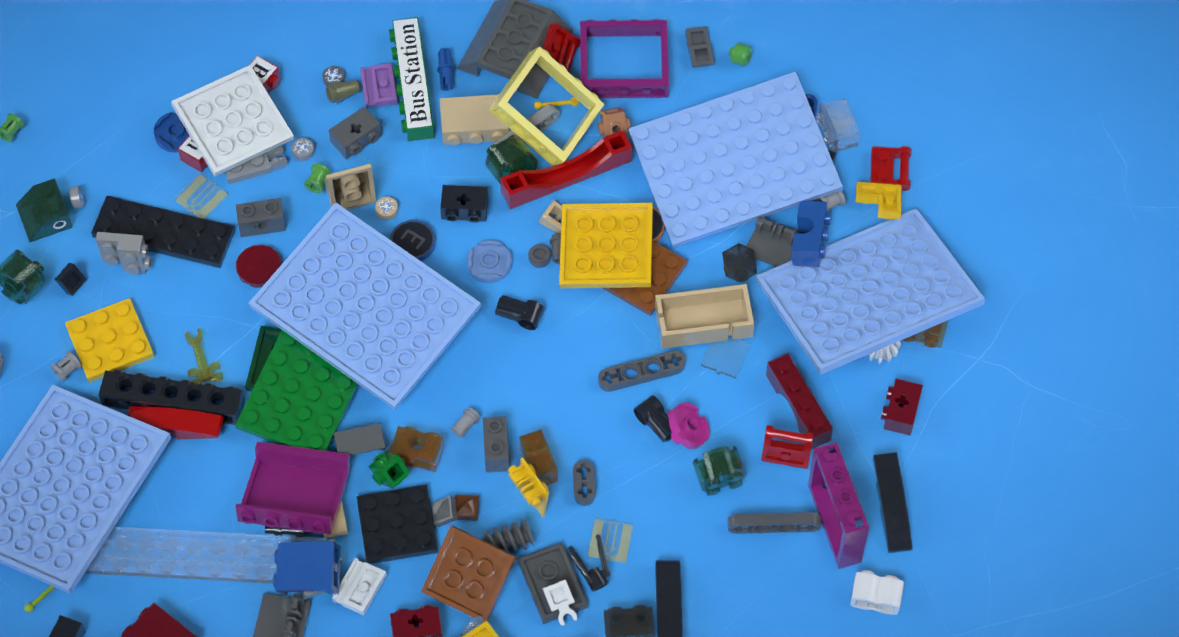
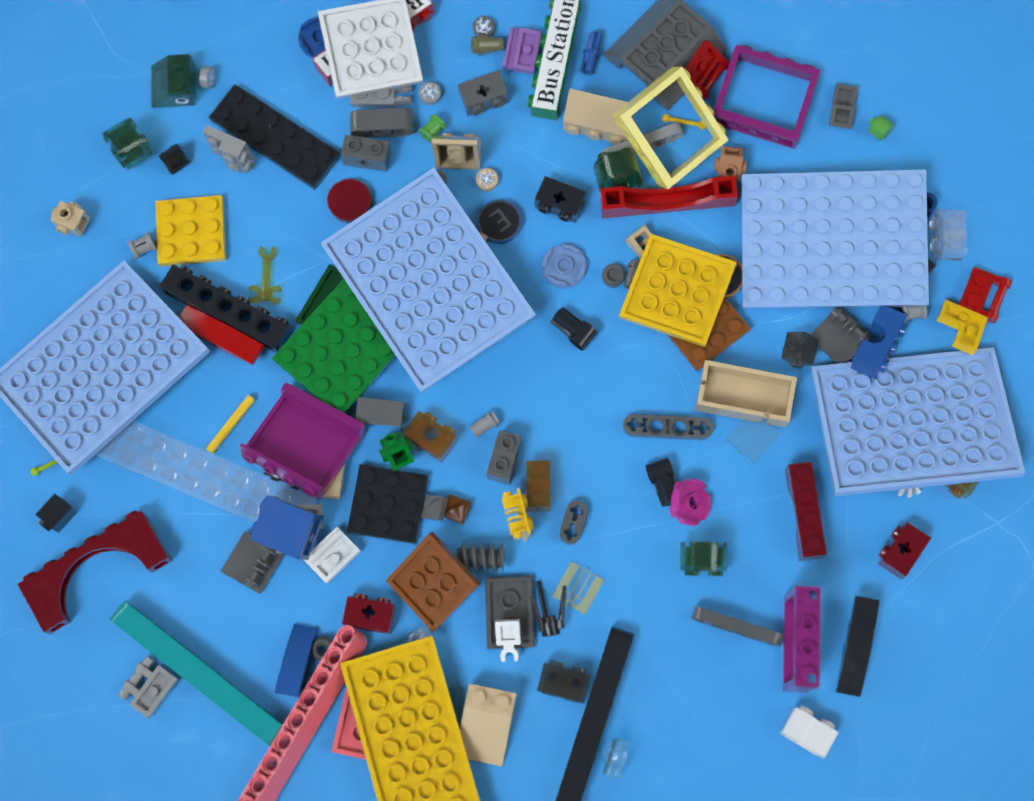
camera: 25 degrees right, 15 degrees up
(201, 196) = (321, 111): clear light blue piece -> none
(213, 501) = (230, 424): none -> yellow bar
(266, 186) = (381, 122): none -> dark grey beam
(785, 452) = (776, 556): red plate -> none

